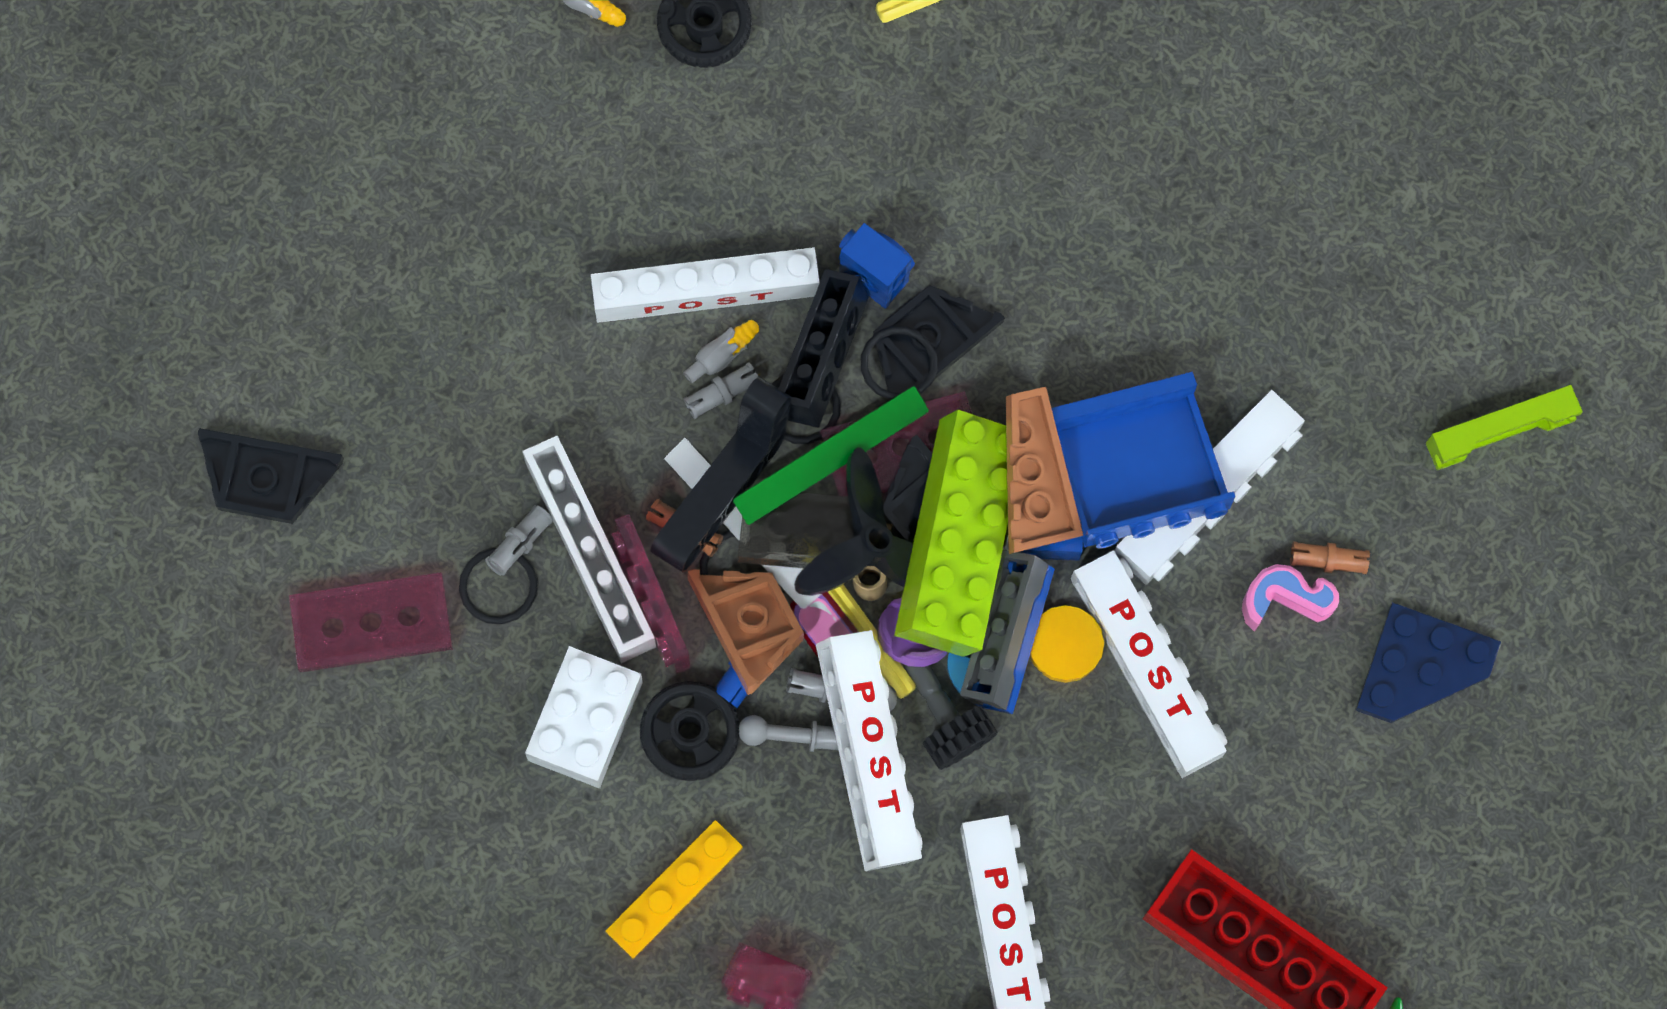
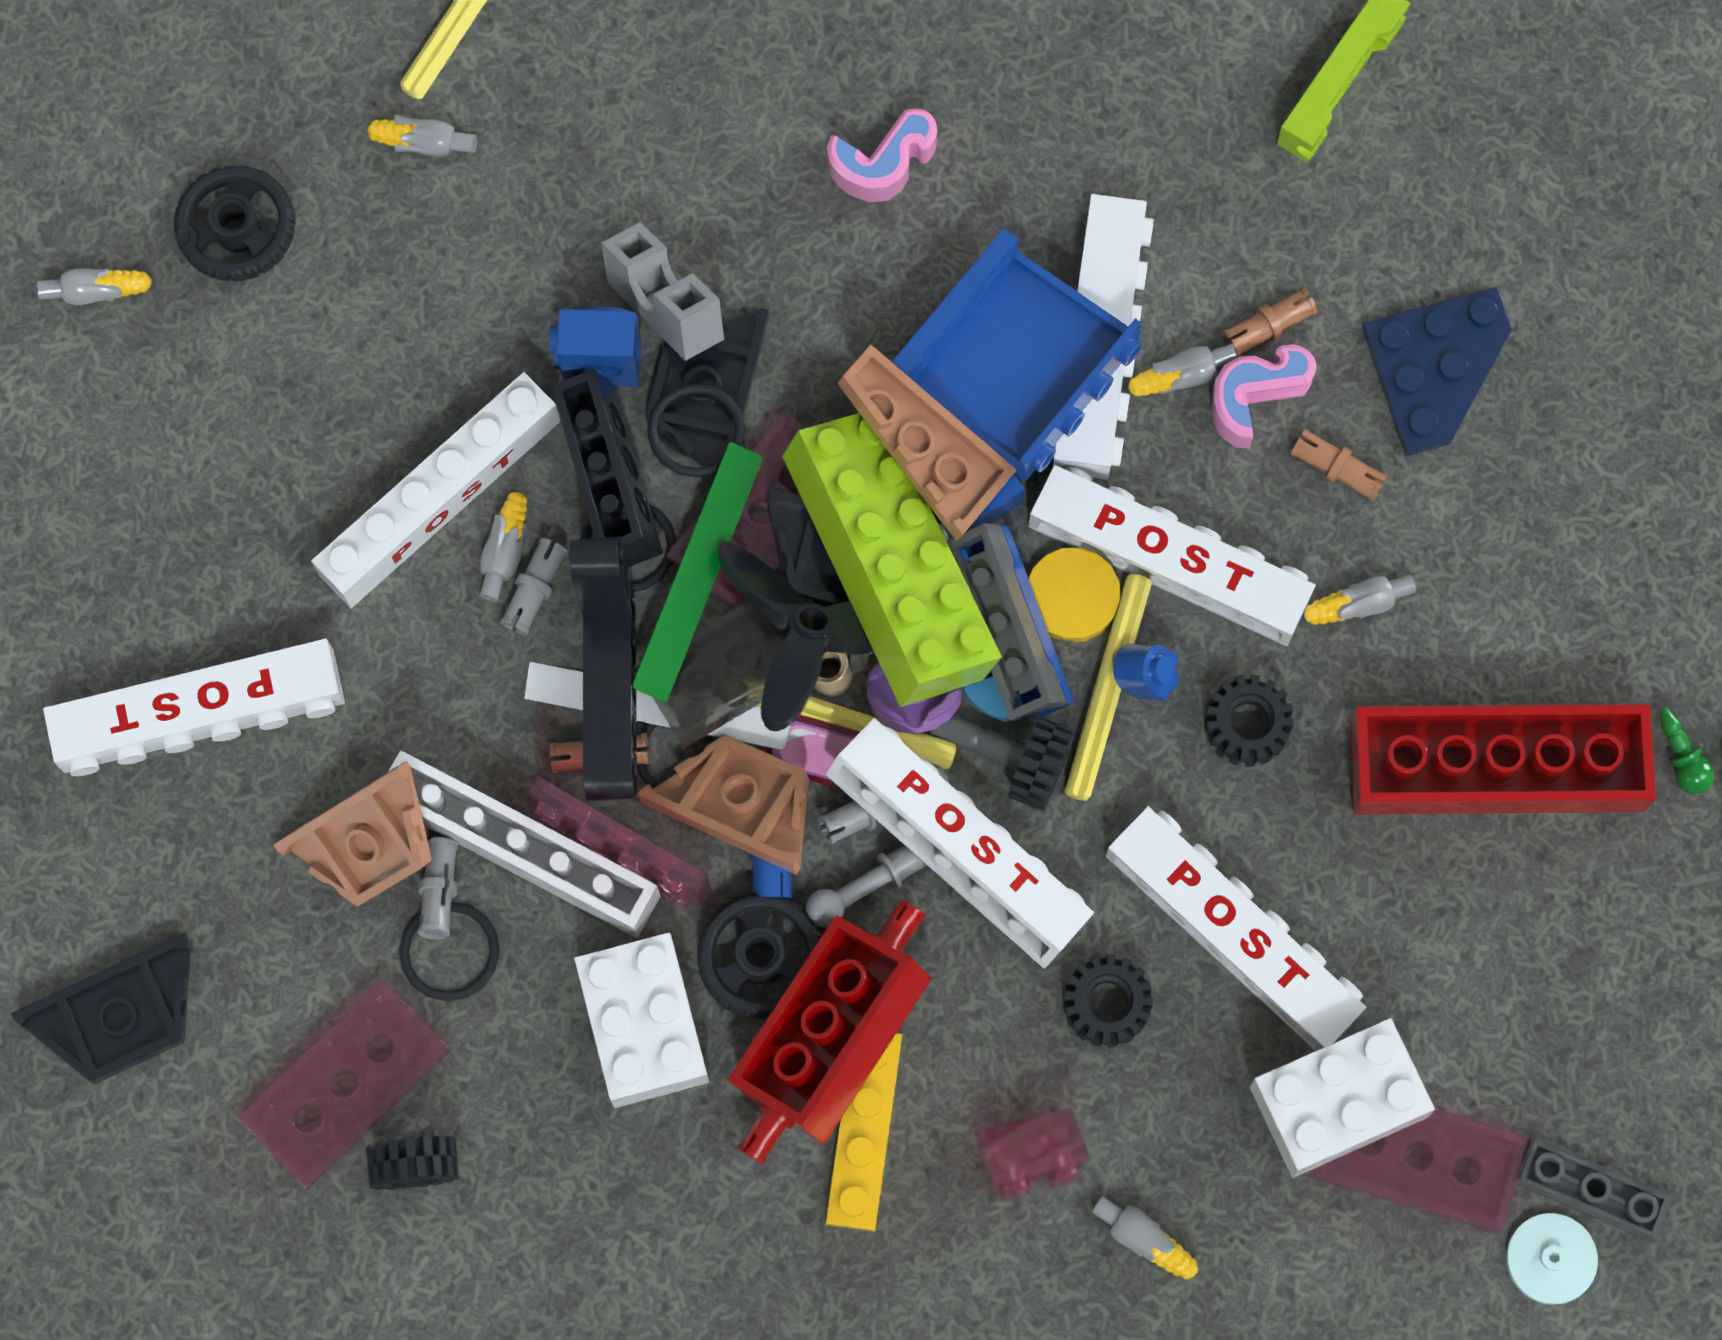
camera: 30 degrees left, 0 degrees up
(374, 702) = (412, 1162): none -> black tyre
(452, 316) = (194, 707): none -> white brick
(495, 476) = (365, 838): none -> nougat wing
(696, 809) = (829, 1030): none -> red brick
(865, 47) = (421, 136): none -> light grey piece
(898, 899) = (1124, 976): none -> black tyre
(941, 273) = (680, 310): none -> light grey arch
(1043, 720) = (1106, 691): none -> light yellow axle
(1074, 727) = (1146, 671): none -> blue plate
(1134, 791) = (1252, 692): none -> black tyre
(1154, 278) = (888, 167): none -> bright pink animal
(1247, 548) = (1182, 371): none -> light grey piece
(1252, 782) = (1360, 600): none -> light grey piece
(1305, 684) = (1339, 465): none -> nougat pin

